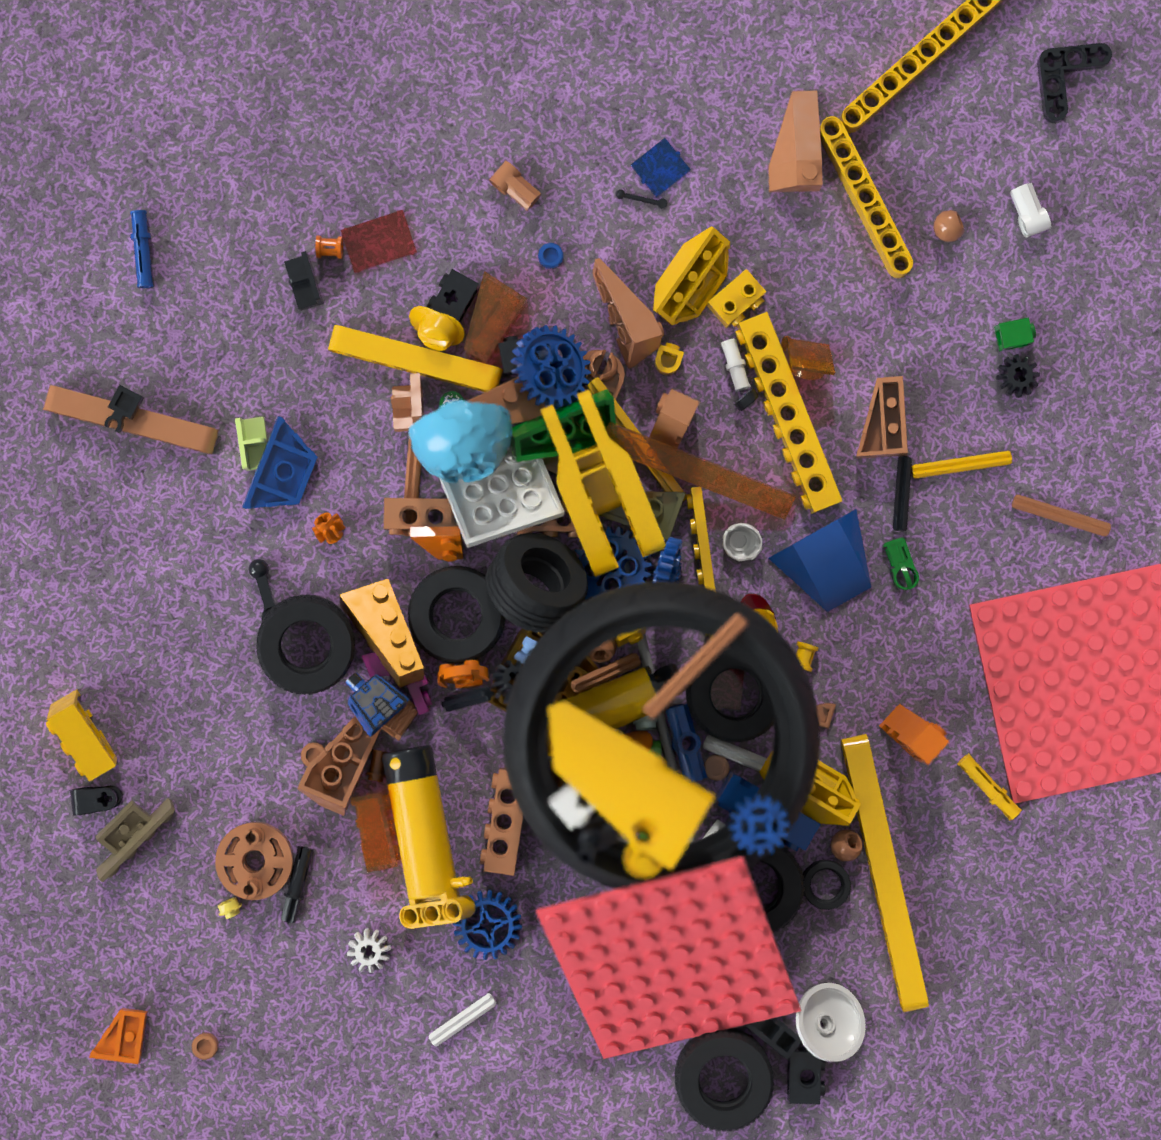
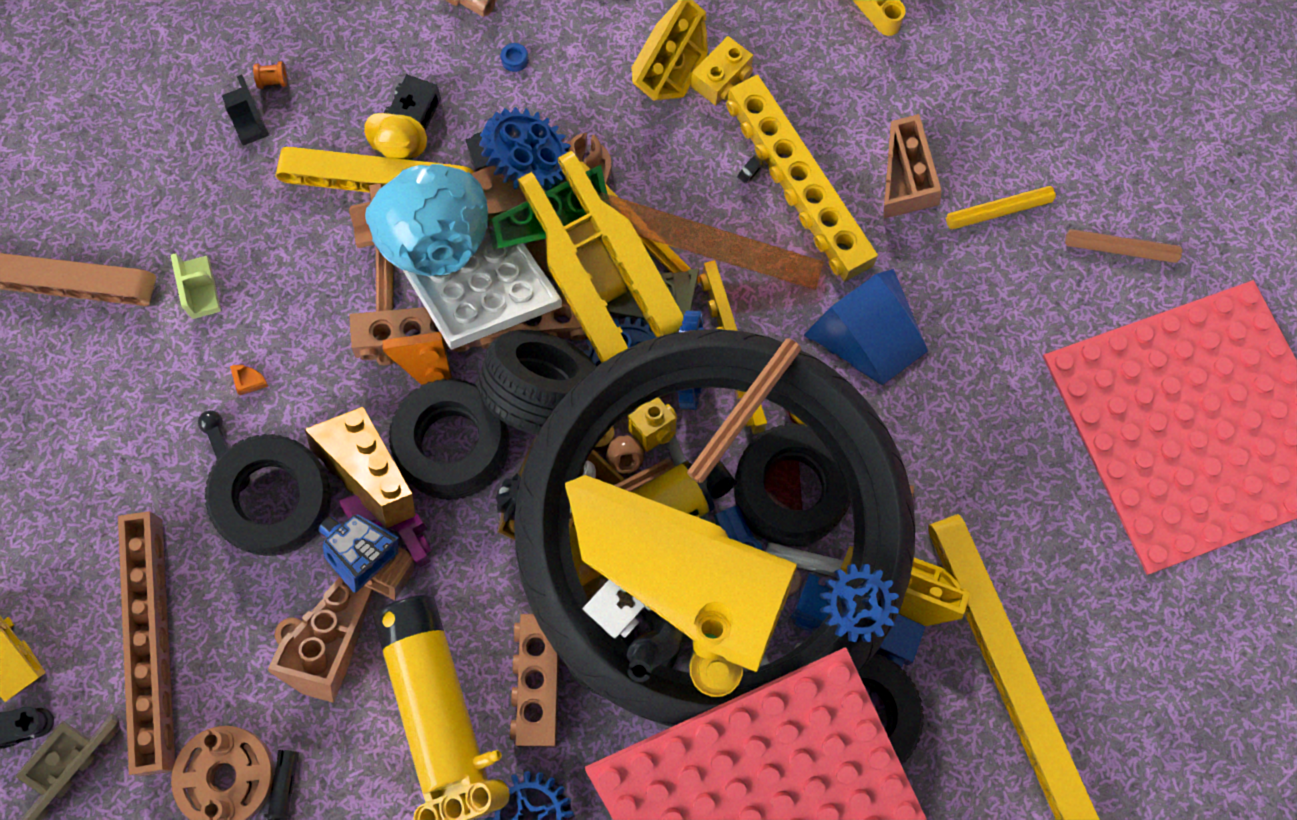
camera: 10 degrees left, 15 degrees down
(125, 404) = (38, 254): black plate -> none
(141, 248) = (61, 92): blue pin -> none
(200, 749) = (146, 645): none -> nougat brick
(281, 470) = (229, 309): blue wing -> none
(291, 533) = (247, 379): none -> orange tile
(328, 528) = (289, 364): orange gear -> none
(376, 770) = (370, 641): reddish brown pin -> none
(376, 830) = (374, 712): clear orange wedge -> none
(378, 241) = (325, 66): clear red piece -> none
(462, 676) = (463, 507): orange plate -> none
(467, 699) = (472, 532): black axle -> none
(492, 318) = (458, 115): clear orange wedge -> none
(635, 323) = (607, 97): nougat wedge -> none
(668, 359) = (657, 138): yellow plate -> none
(674, 417) = (674, 179): nougat wedge -> none
(735, 365) = (732, 137): white pin -> none
(742, 542) = (772, 316): white hair -> none
(808, 358) = (811, 118): clear orange hat -> none
(844, 891) = (968, 695): black tyre -> none
(846, 845) = (961, 650): nougat piece -> none
(901, 559) = (956, 314): green piece -> none
(902, 493) = (942, 245): black axle -> none
(914, 734) = (1018, 501): orange wedge -> none
(994, 792) = (1126, 565): yellow pin -> none
(1009, 371) = (1041, 109): black gear -> none
(1015, 334) = (1028, 68): green brick -> none

